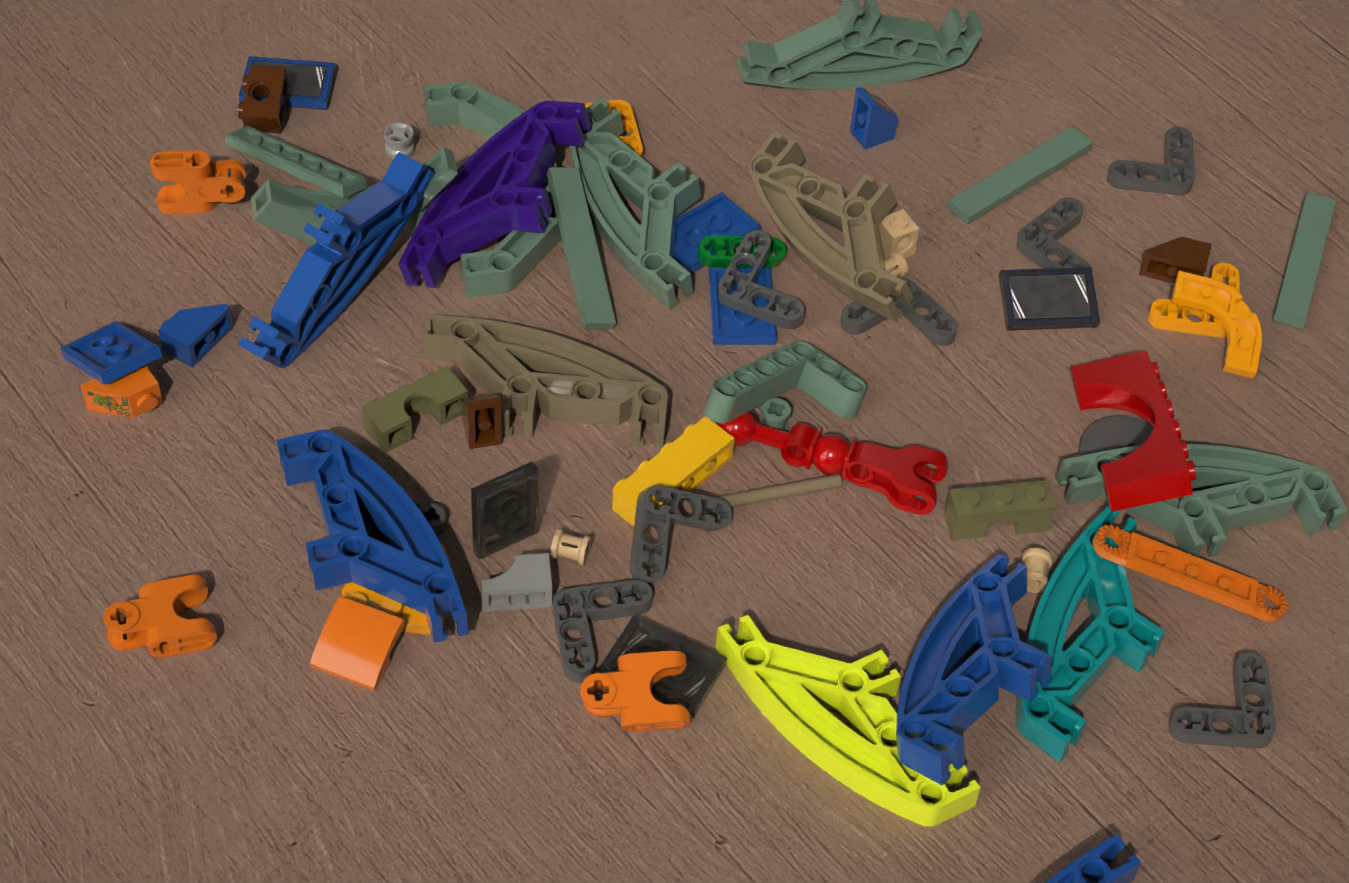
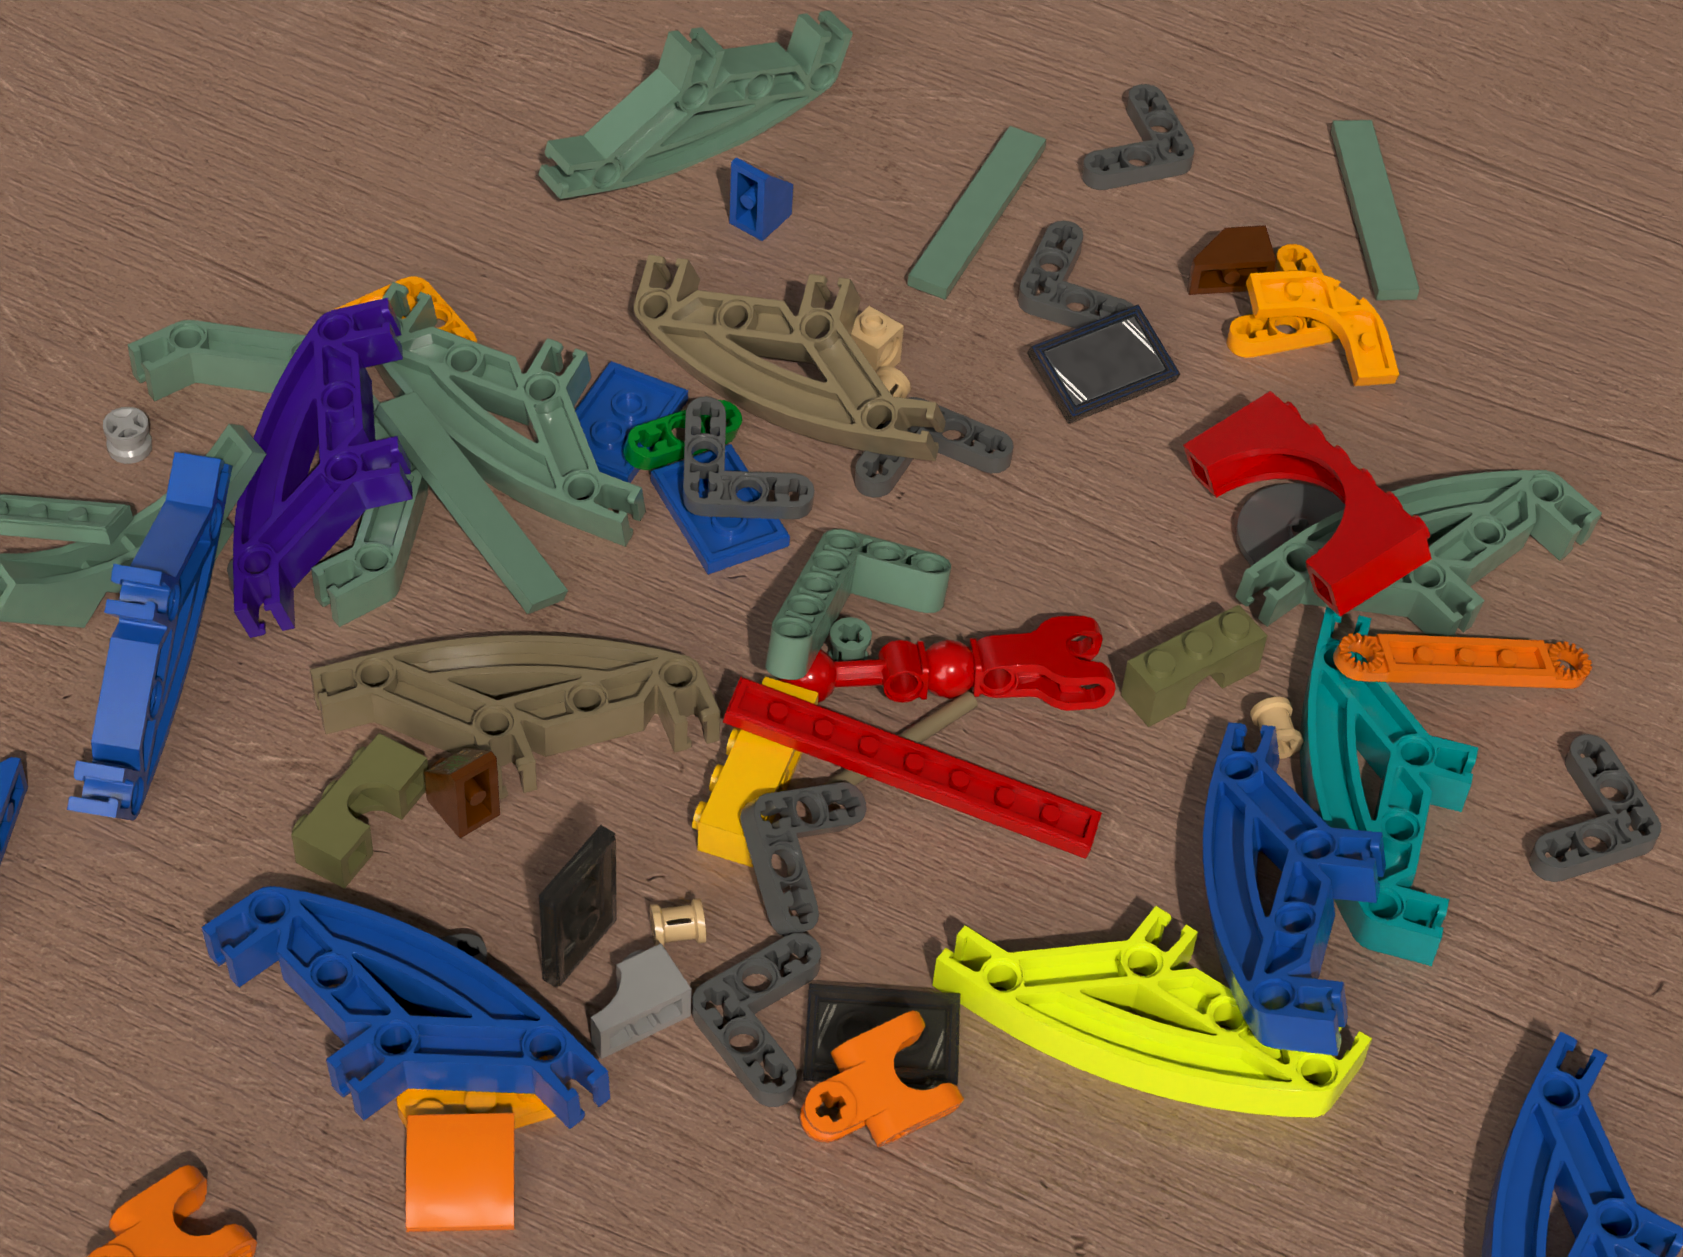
camera: 25 degrees left, 0 degrees up
(773, 507) = (913, 767): none -> red tile

